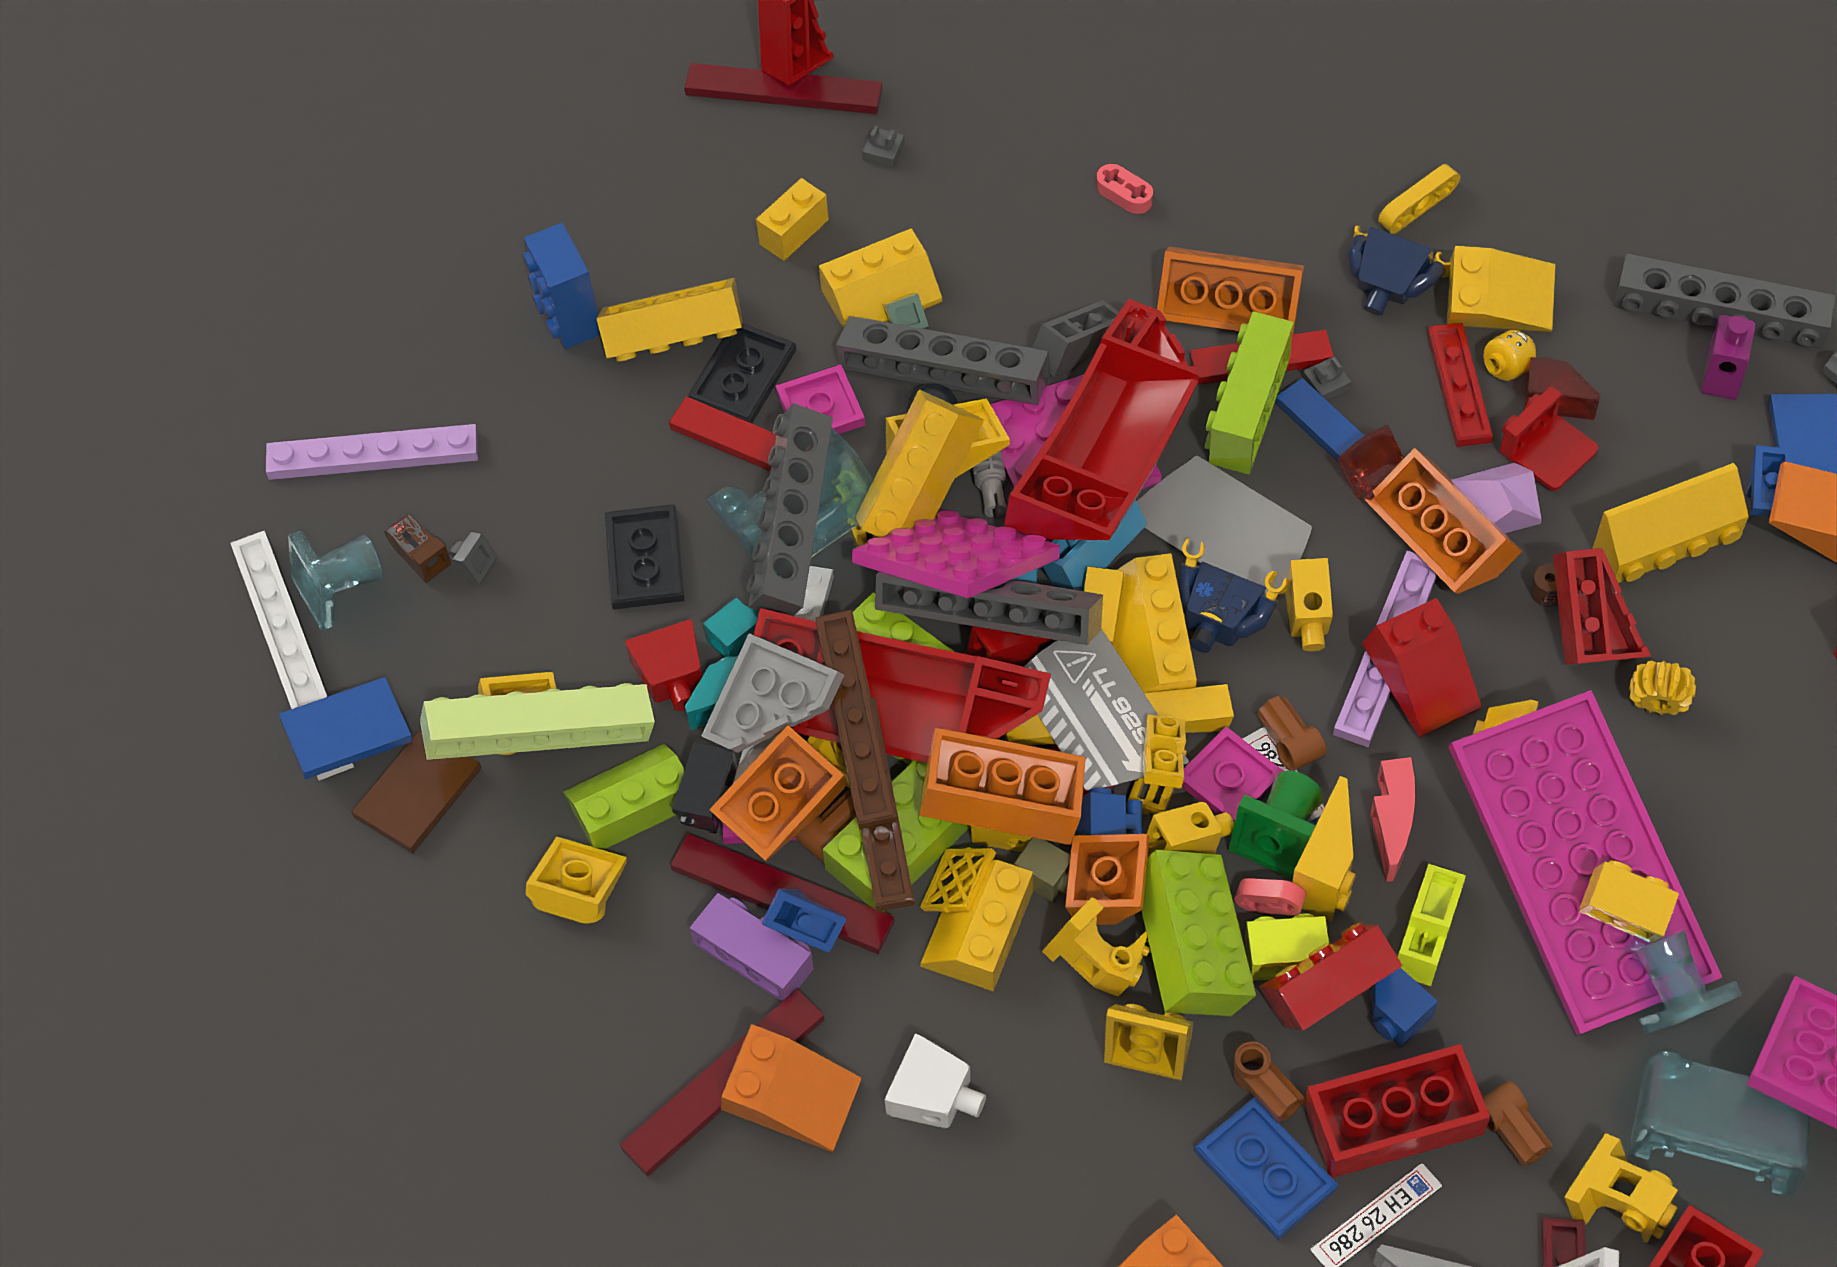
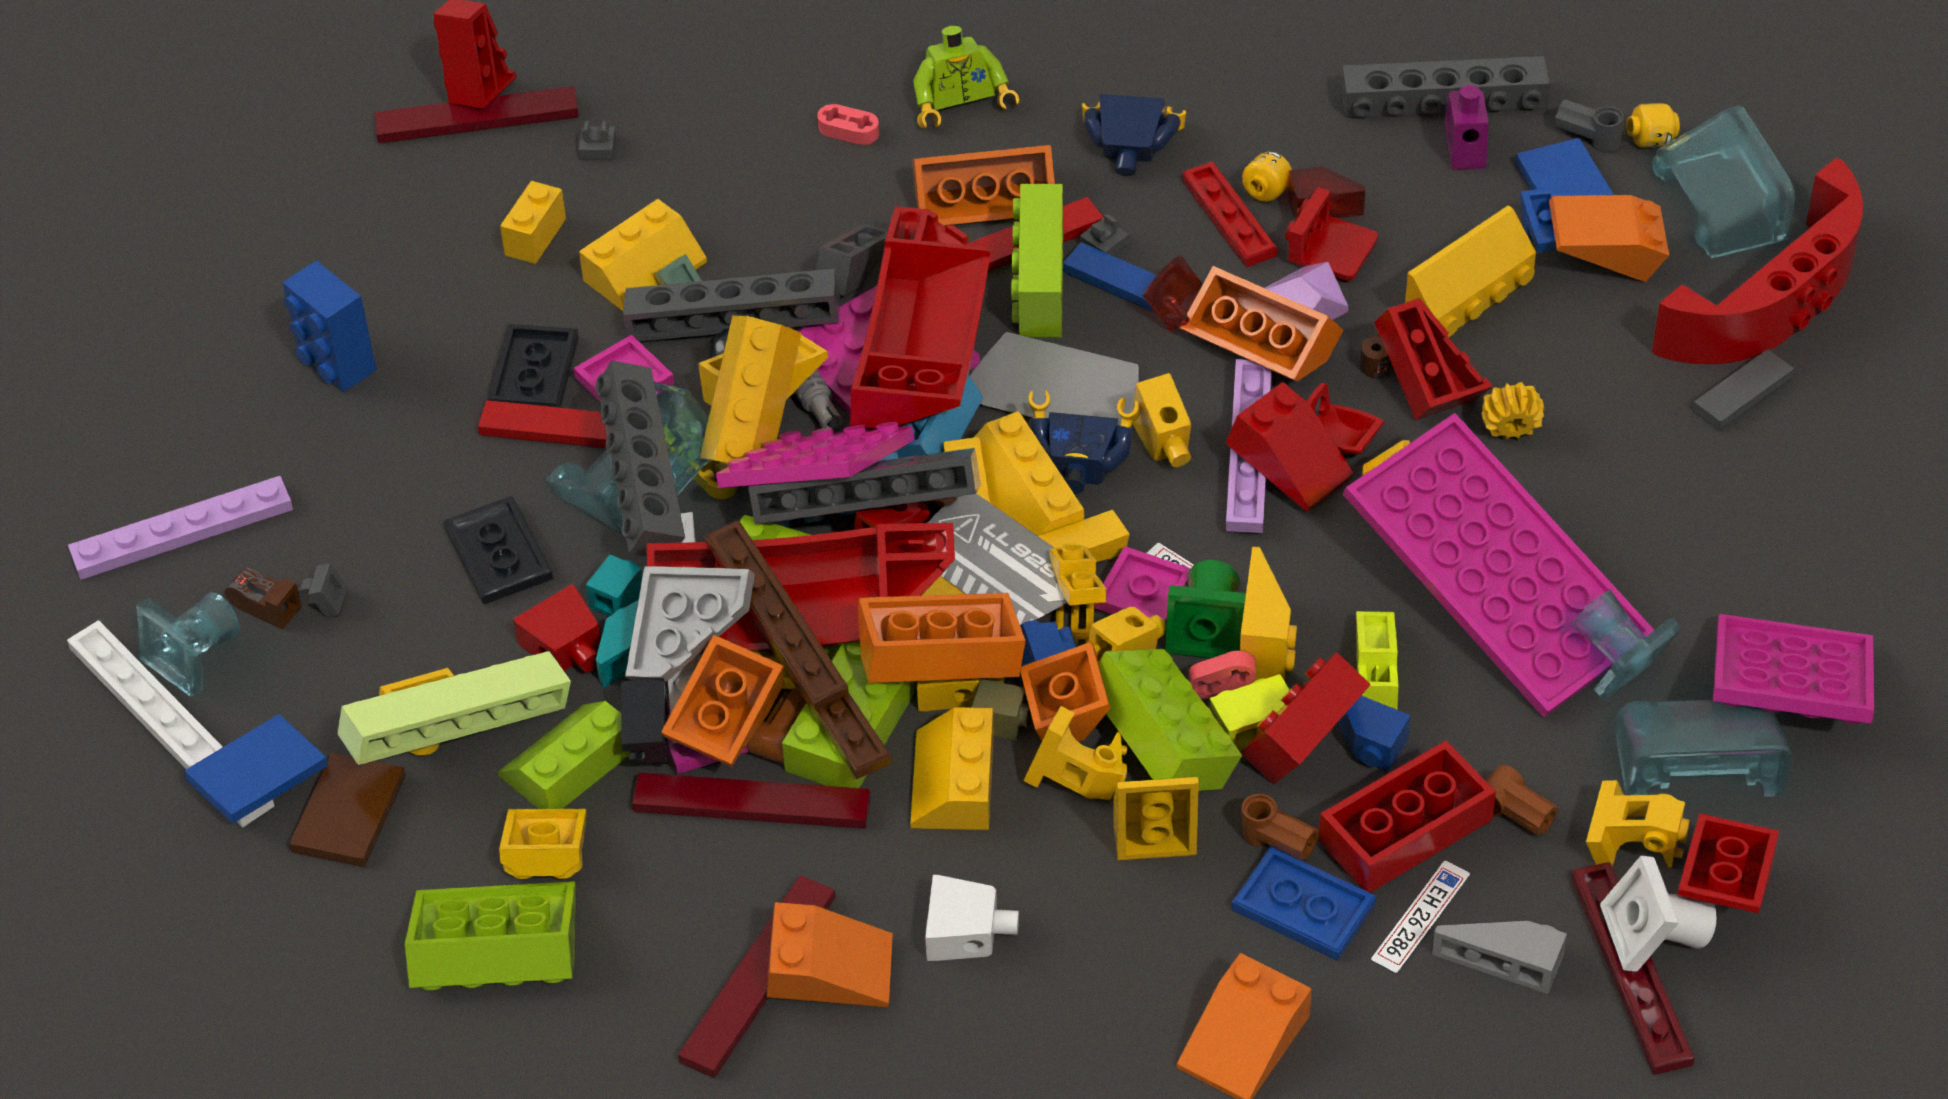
camera: 20 degrees left, 10 degrees down
(496, 963) = (491, 935): none -> lime slope
(670, 319) = (447, 334): yellow slope -> none
(750, 948) = (741, 851): medium lavender brick -> none
(804, 919) = (787, 808): blue slope -> none
(941, 873) = (898, 770): yellow window -> none
(1243, 164) = (957, 74): none -> lime torso
(1294, 741) = (1187, 538): dark orange piece -> none
(1393, 812) = (1307, 577): coral slope -> none
(1419, 198) = (1133, 65): yellow beam -> none
(1488, 654) = (1348, 427): none -> red piece
(1500, 290) = (1236, 123): yellow slope -> none
(1629, 901) = (1551, 582): yellow brick -> none

